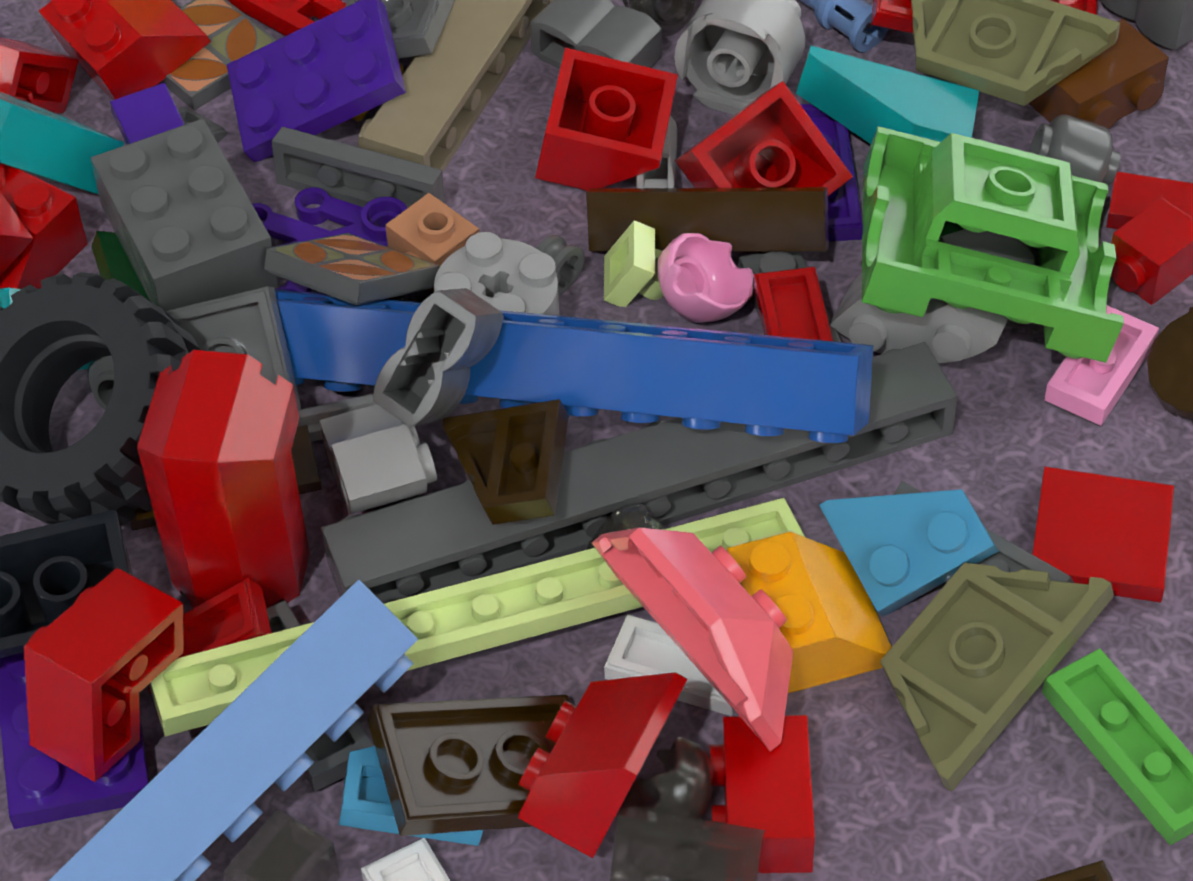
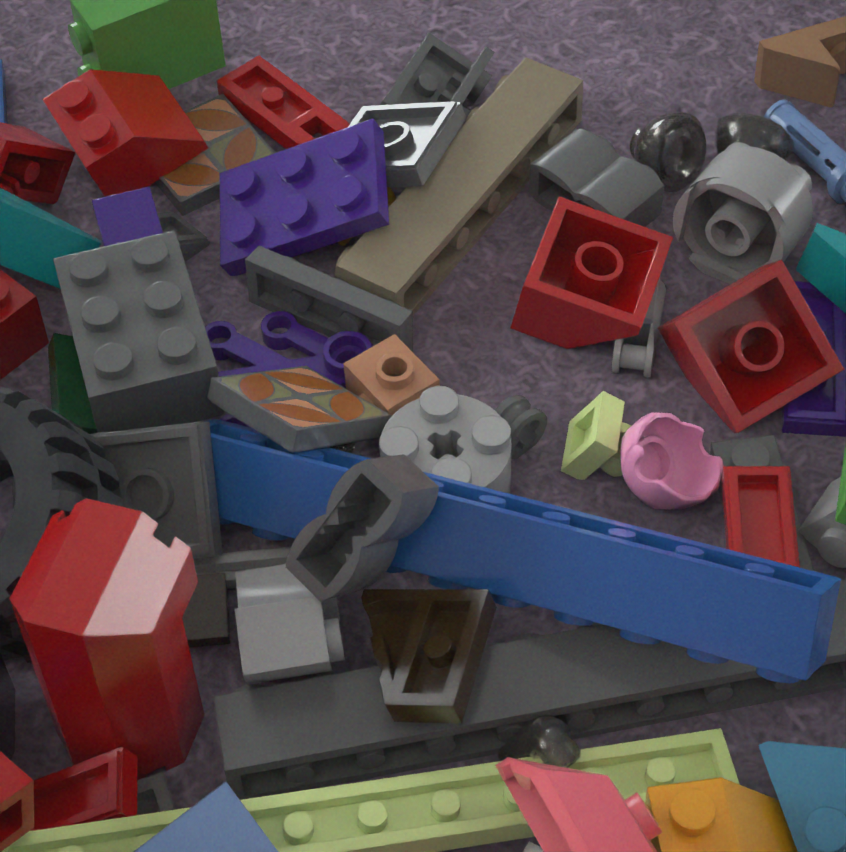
camera: 10 degrees right, 0 degrees up
(740, 216) = (718, 400): dark brown tile -> none

